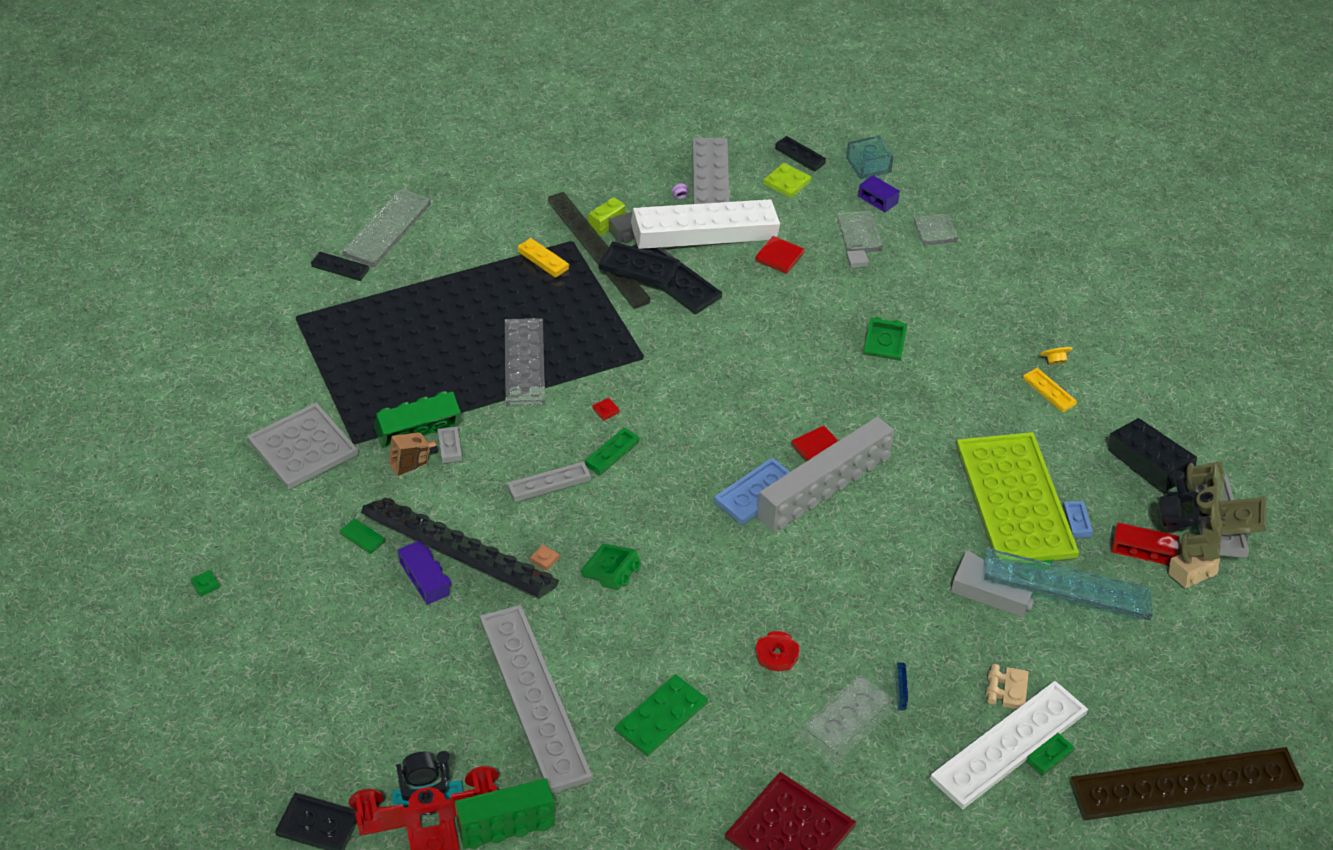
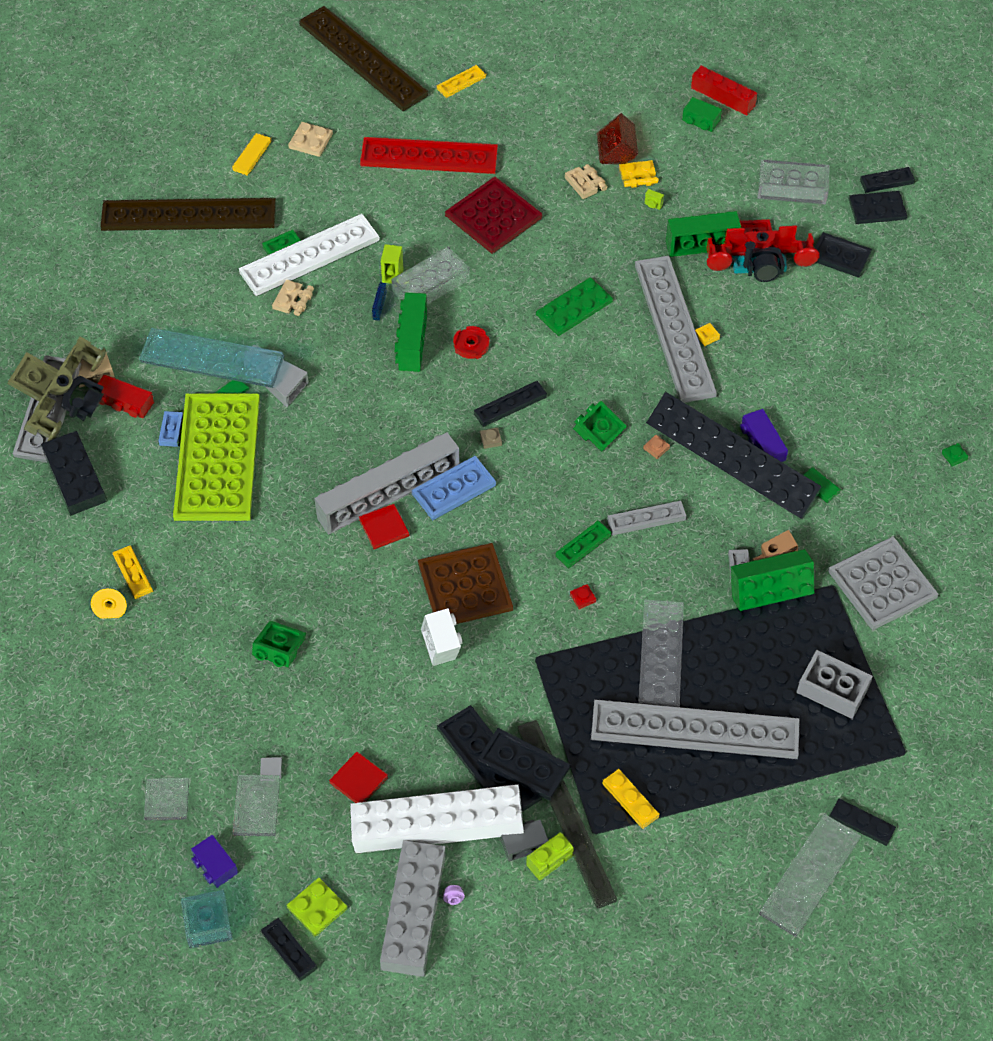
camera: 170 degrees left, 10 degrees up
(359, 340) = (834, 684): none -> light grey brick
(488, 304) = (695, 729): none -> light grey plate
(493, 691) = (707, 334): none -> yellow plate
(715, 584) = (510, 403): none -> black plate
(724, 405) = (466, 583): none -> reddish brown plate
(730, 548) = (490, 438): none -> dark tan plate
(734, 331) = (440, 636): none -> white brick
(849, 636) = (411, 332): none -> green brick
(900, 723) = (391, 262): none -> lime brick

